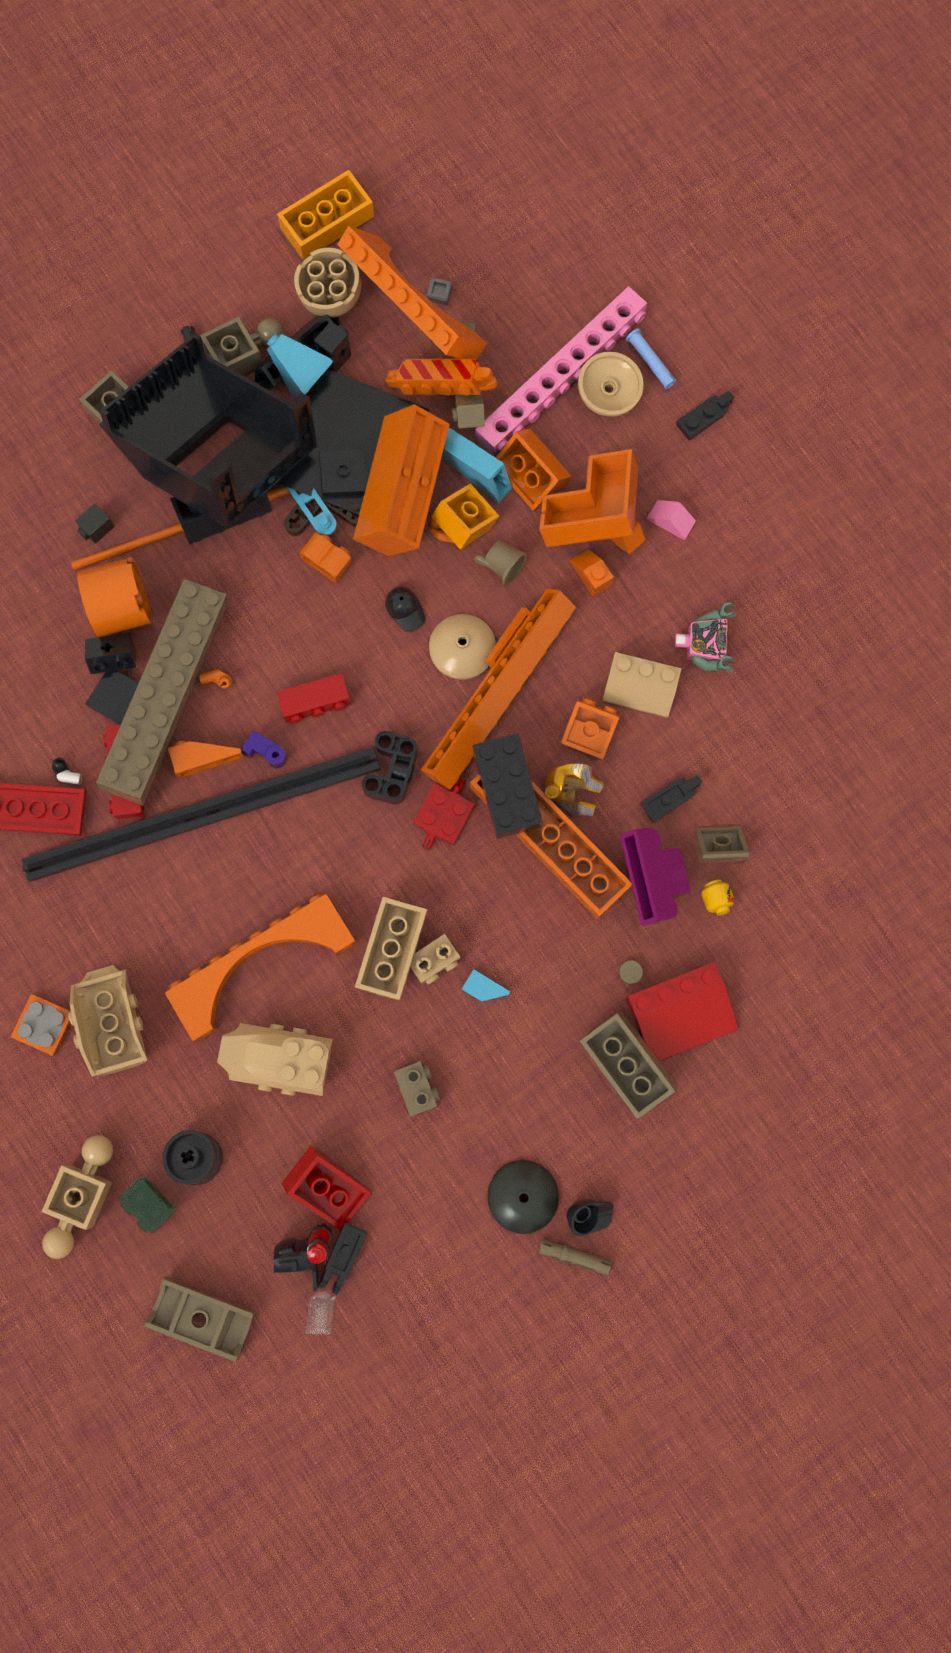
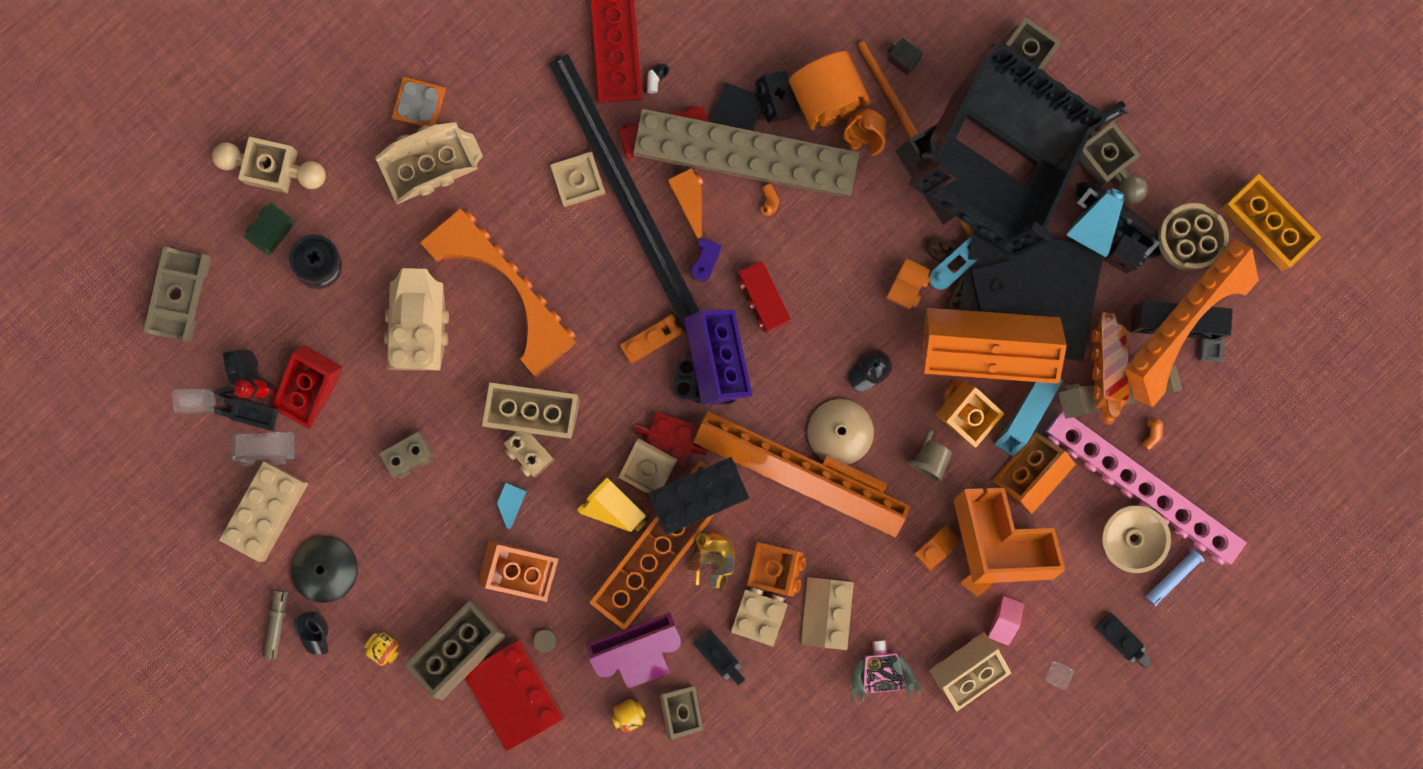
camera: 85 degrees right, 5 degrees up
(156, 869) = (577, 179): none -> tan tile
(161, 569) = (866, 128): none -> orange helmet
(337, 819) = (651, 339): none -> orange plate
(367, 749) = (718, 356): none -> dark purple slope
(383, 1244) = (263, 447): none -> clear brick
(399, 330) = (1149, 316): none -> black brick
(452, 1253) = (263, 511): none -> tan brick
(469, 839) = (647, 467): none -> tan plate
(504, 880) = (613, 507): none -> yellow slope
(512, 353) = (1156, 433): none -> orange arm
(555, 990) = (517, 571): none -> orange slope
(616, 1143) = (382, 648): none -> yellow head
(635, 752) = (759, 616): none -> tan plate
(716, 558) = (970, 671): none -> tan slope
(730, 478) = (1059, 675): none -> clear tile

